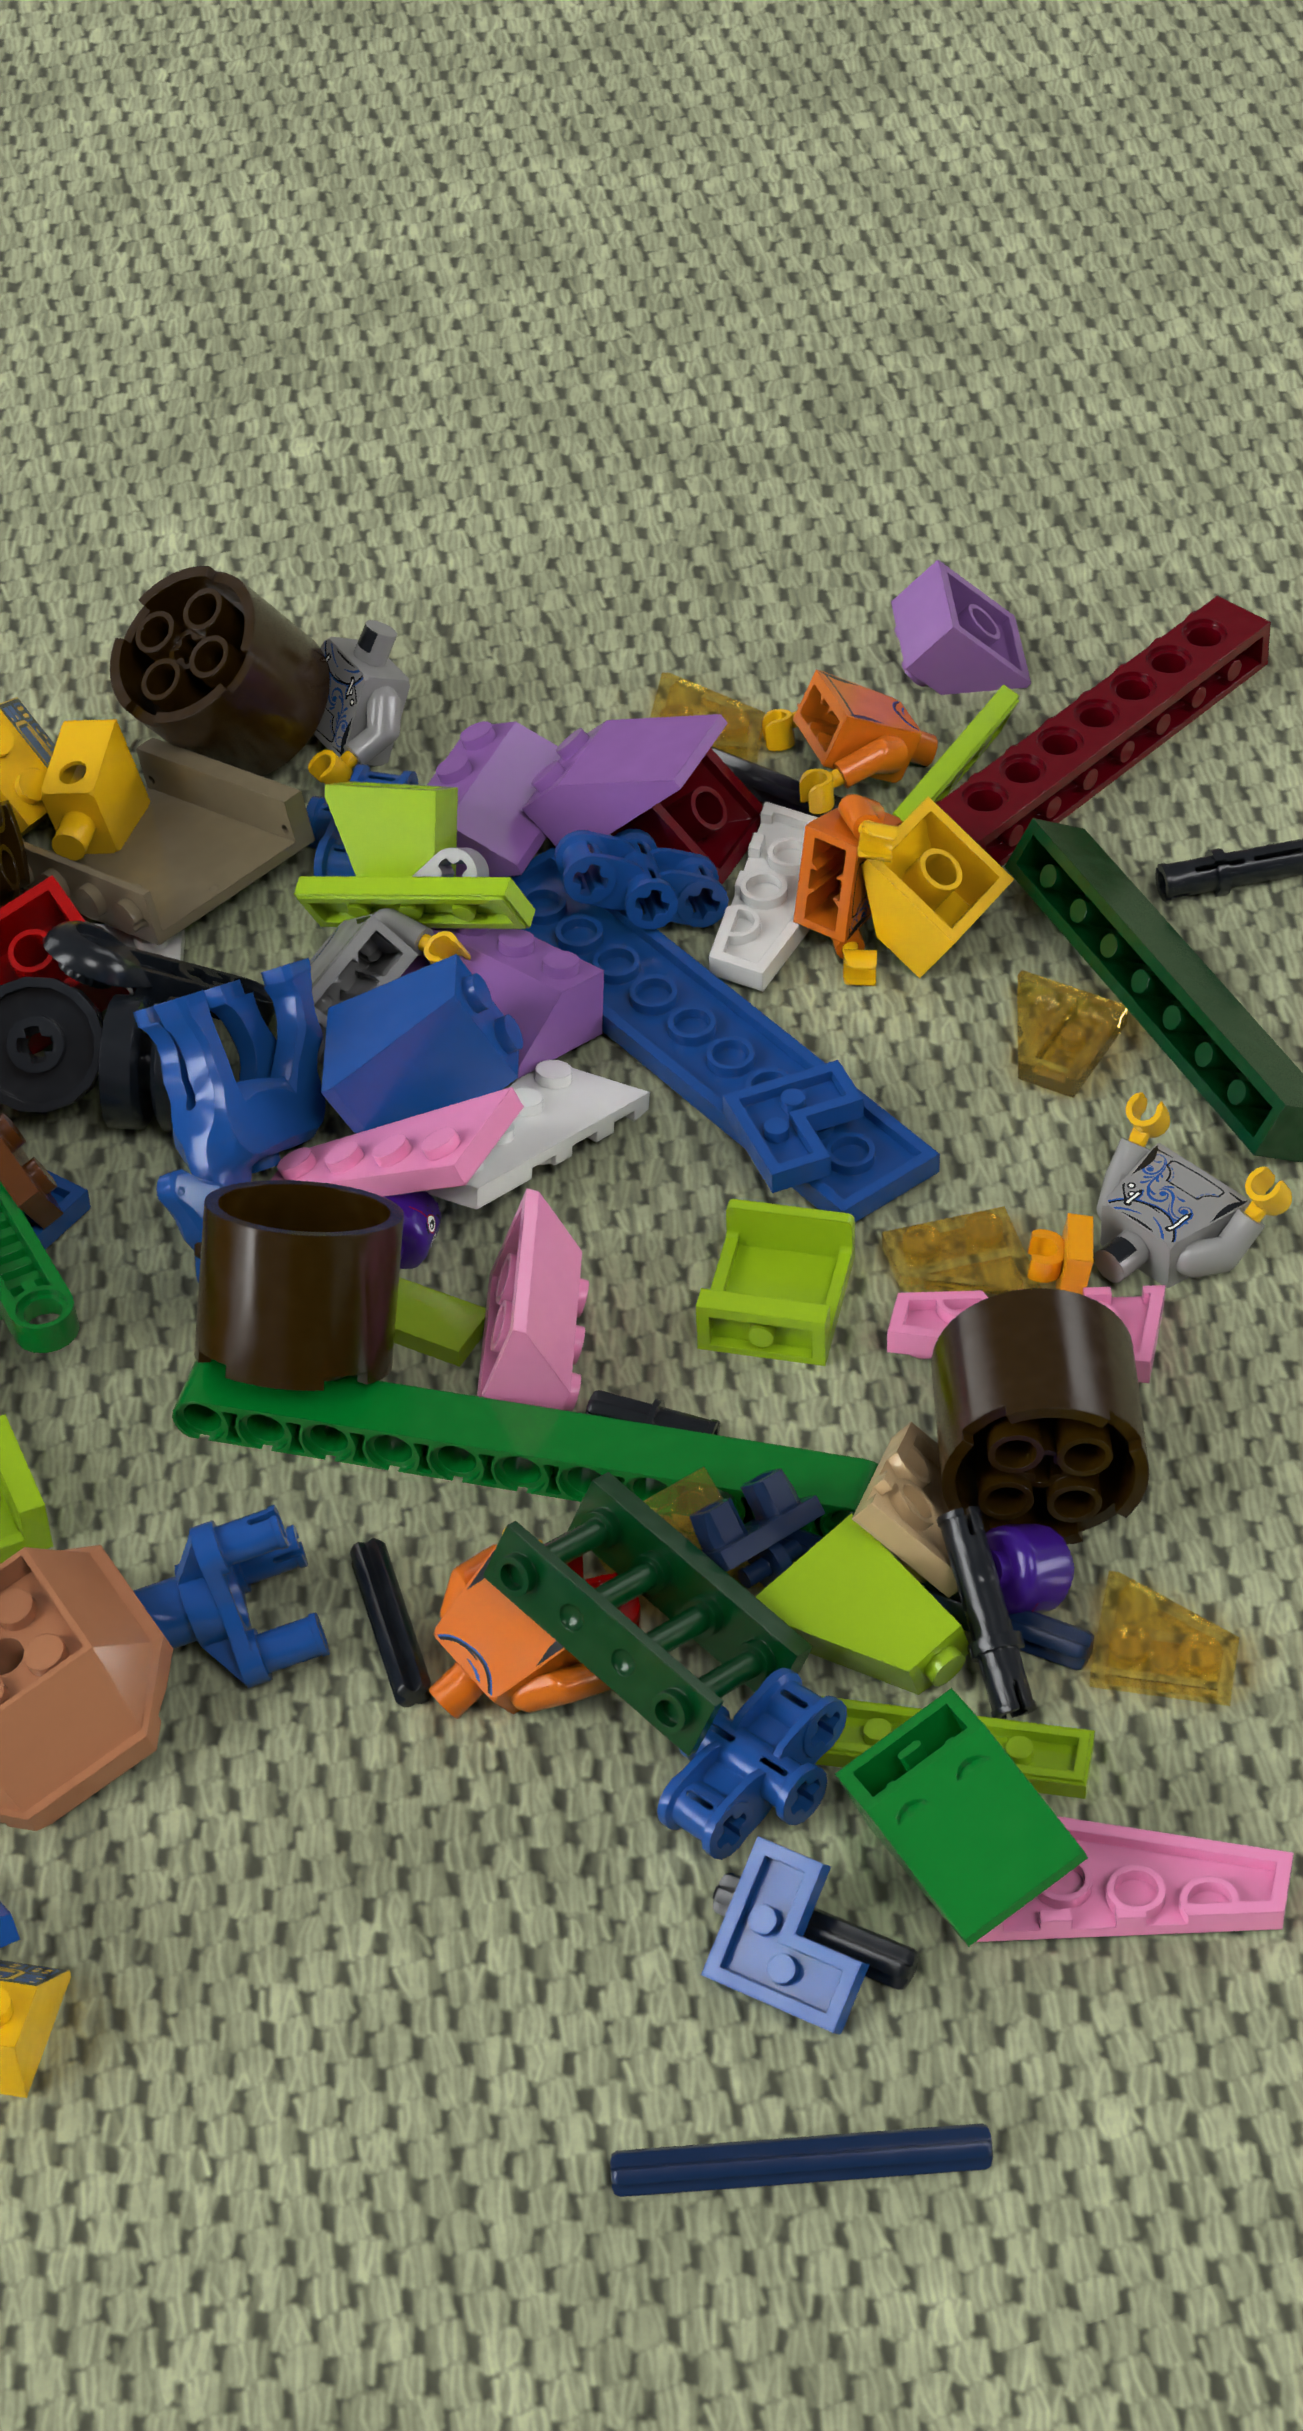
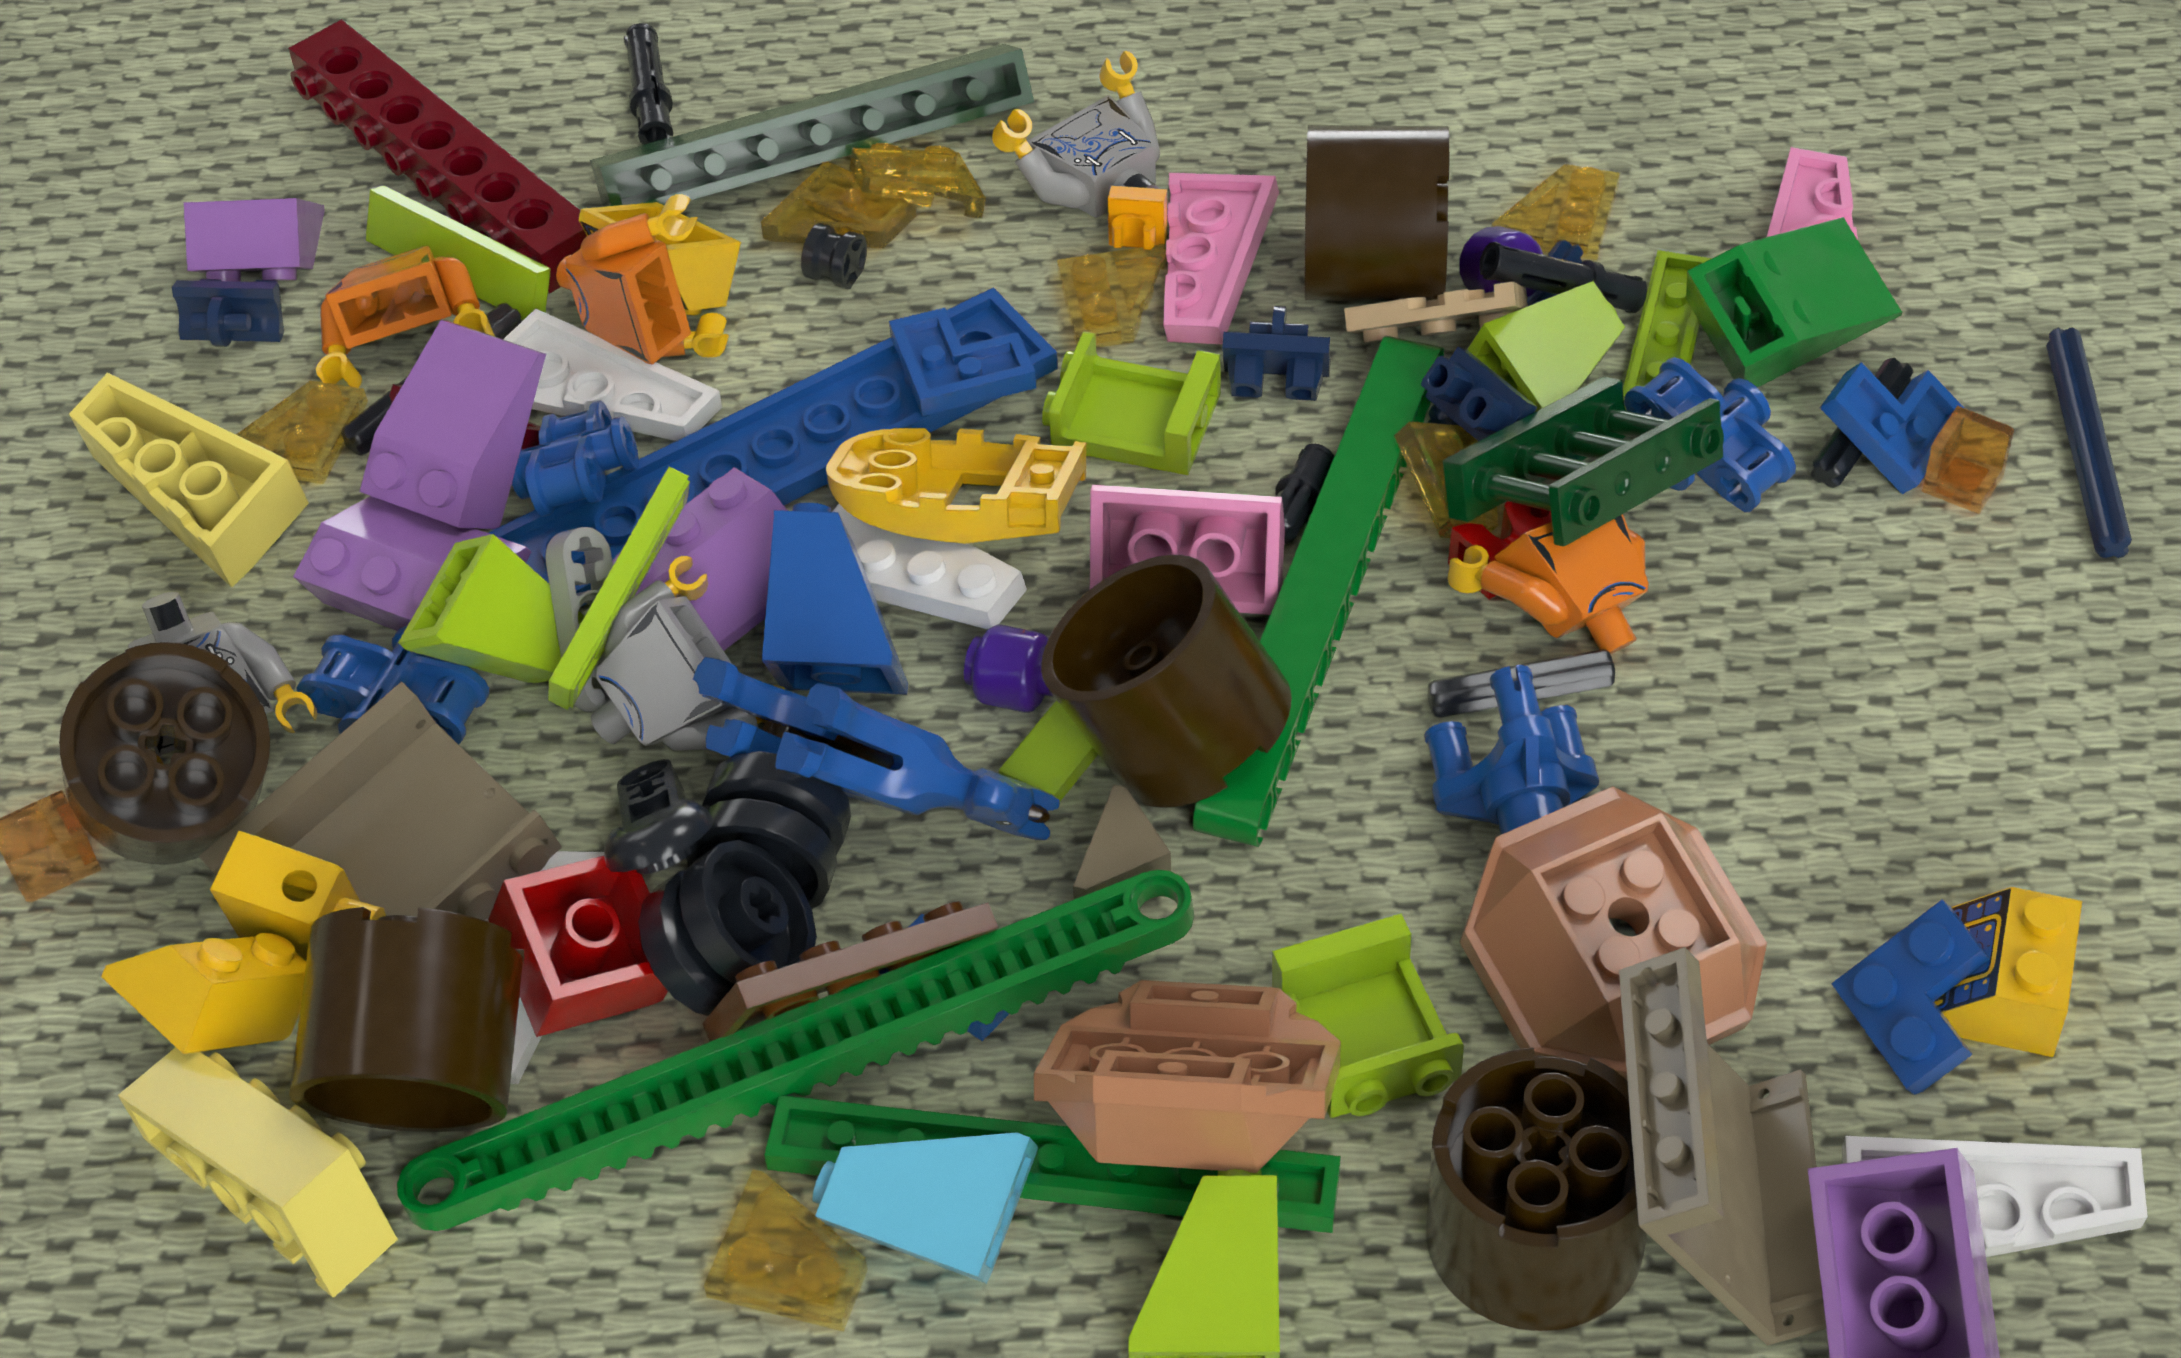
camera: 85 degrees left, 5 degrees up
(144, 1318) = (1120, 846): none -> dark tan slope
(410, 1154) = (965, 621): bright pink wing -> none
(612, 650) = (195, 477): none -> light yellow wedge
(631, 1107) = (909, 481): none -> yellow slope
(735, 2014) = (1968, 459): none -> clear orange panel
(851, 641) = (229, 311): none -> dark blue hips
(864, 1389) = (1278, 350): none -> dark blue hips
(981, 1032) = (833, 255): none -> black wheel
(1103, 1073) = (917, 176): none -> clear yellow wing

